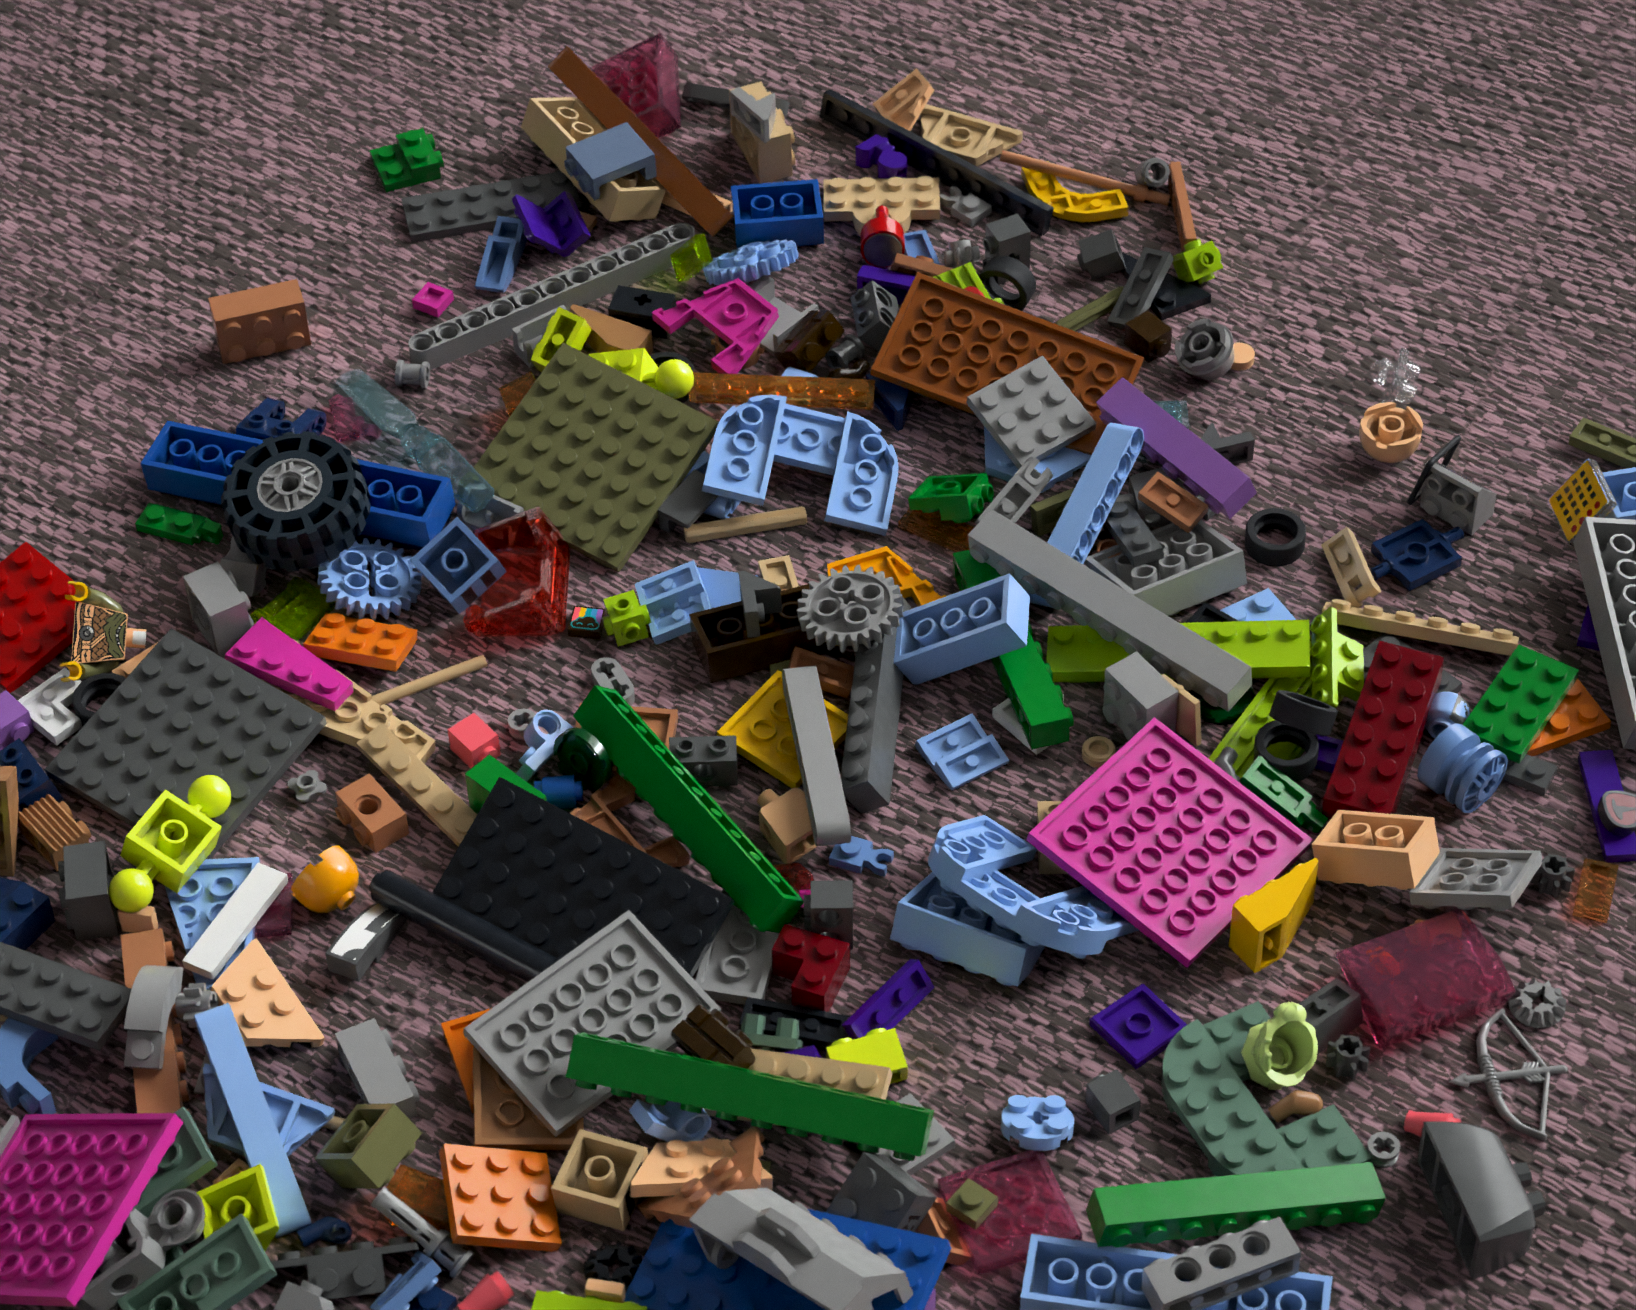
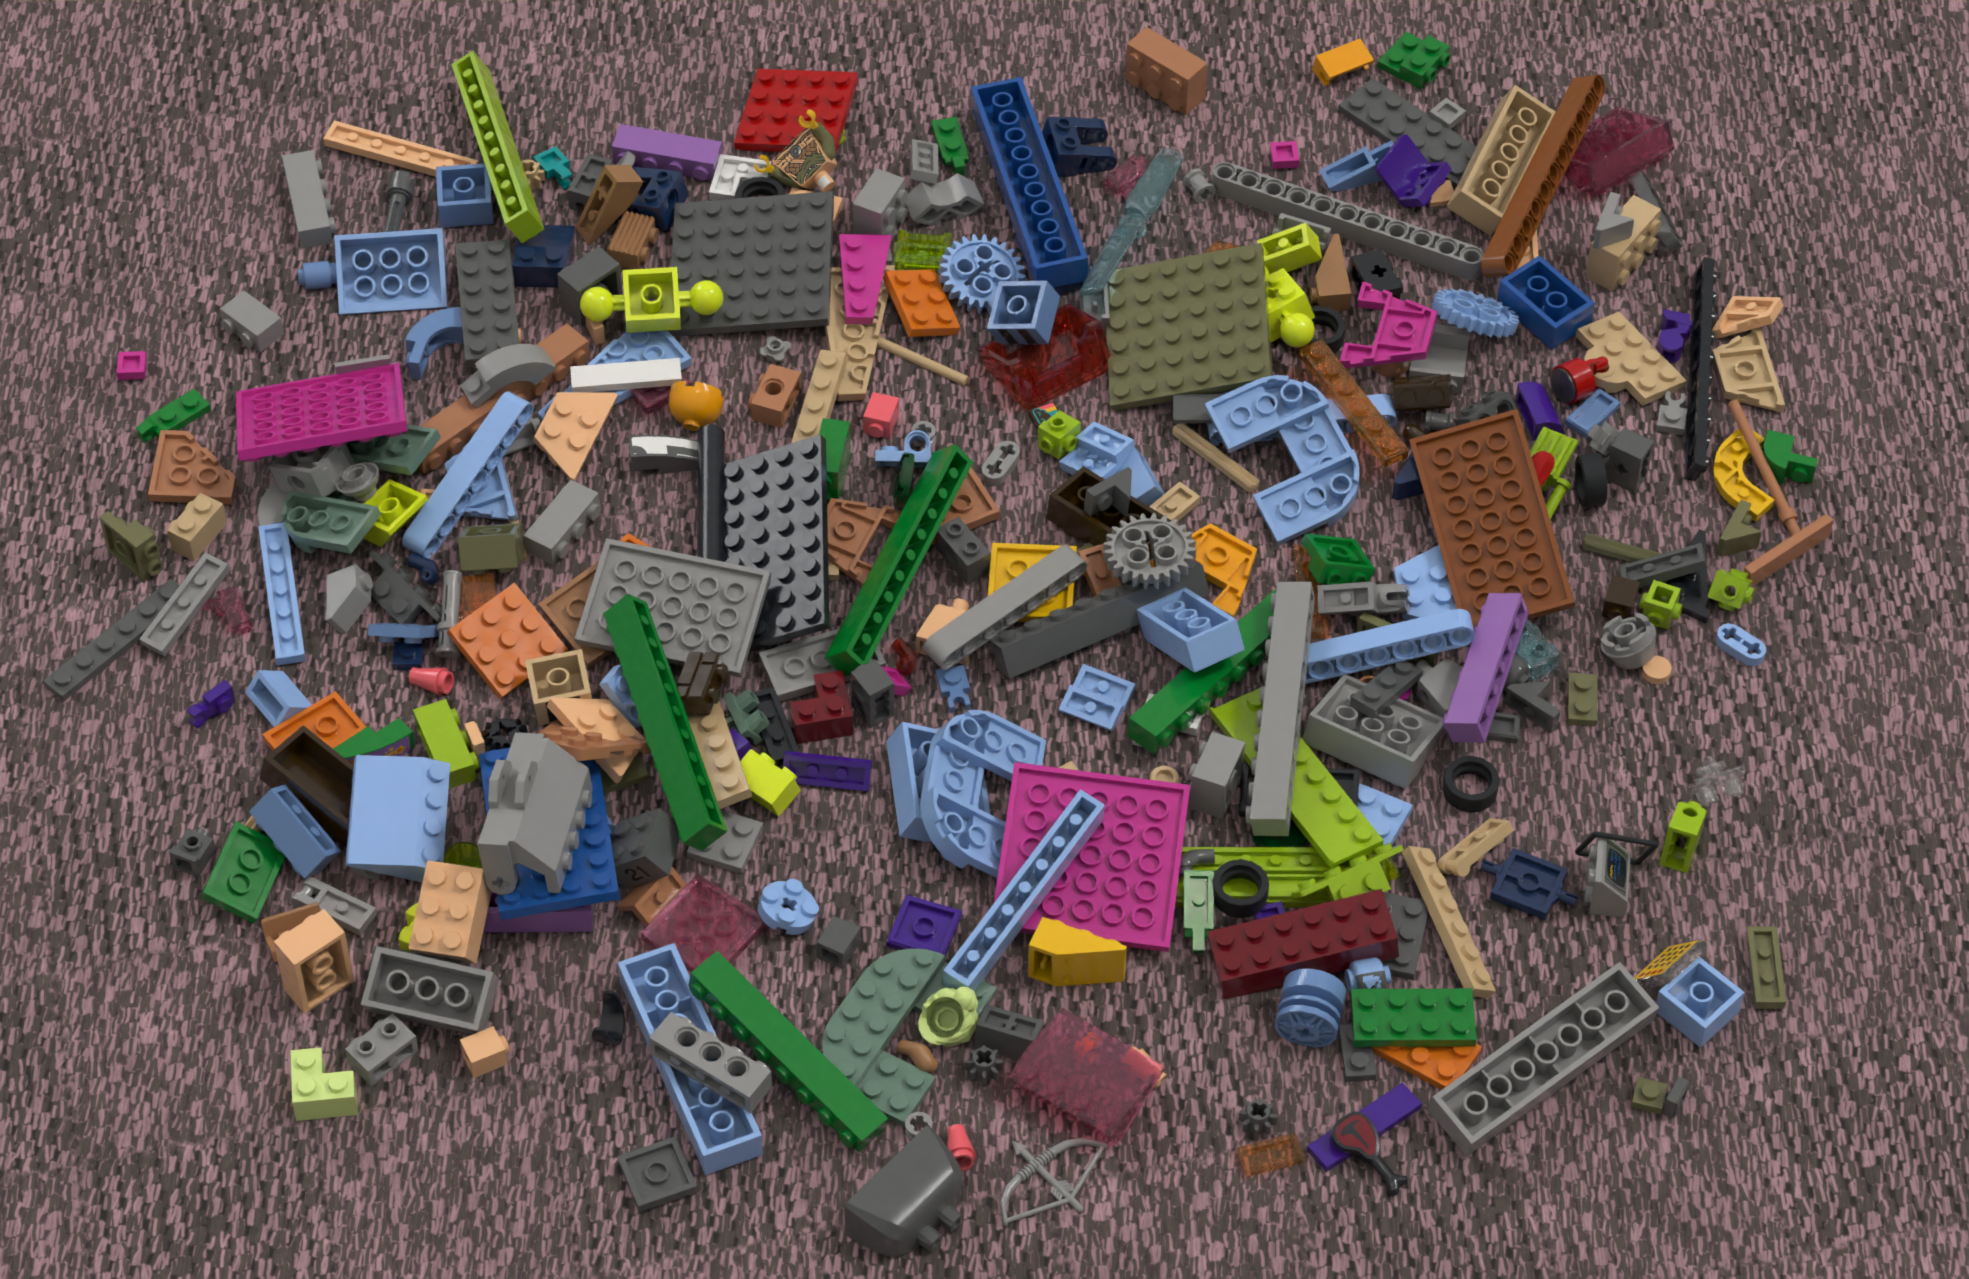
camera: 55 degrees right, 5 degrees up
(190, 548) = (924, 161): none -> light grey plate
(193, 1001) = (538, 393): light grey gear -> none
(295, 501) = (987, 185): black wheel -> none
(365, 206) = (1341, 60): none -> light orange hinge
(493, 170) = (1448, 113): none -> light grey plate
(561, 790) = (873, 486): blue brick -> none
(609, 157) = (1491, 165): sand blue panel -> none
(691, 257) = (1445, 274): clear neon green tile -> none
(919, 264) = (1565, 417): nougat plate -> none
(972, 1203) = (686, 901): olive plate -> none
(1031, 412) = (1456, 562): light grey plate -> none
(1091, 160) = (1783, 462): none -> green brick
(1101, 254) = (1683, 524): dark grey brick -> none
(1133, 230) = (1738, 534): none -> olive slope
(1158, 167) = (1808, 509): light grey brick -> none
(1173, 502) = (1432, 694): nougat plate -> none
(1180, 309) = (1661, 604): none -> lime brick
(1188, 714) = (1229, 804): tan piece -> none
(1194, 907) = (1024, 892): none -> light blue brick
(1233, 417) = (1582, 699): none -> olive plate
(1255, 290) = (1740, 644): none -> light blue beam
(1303, 713) = (1263, 884): black tyre -> none
(1376, 849) = (1179, 986): light nougat brick -> none
(1390, 432) = (1637, 801): light nougat cylinder -> none
(1443, 419) = (1687, 823): none -> lime torso
(1476, 878) = (1201, 1063): light grey plate -> none
(1544, 1014) = (1117, 1169): light grey gear -> none

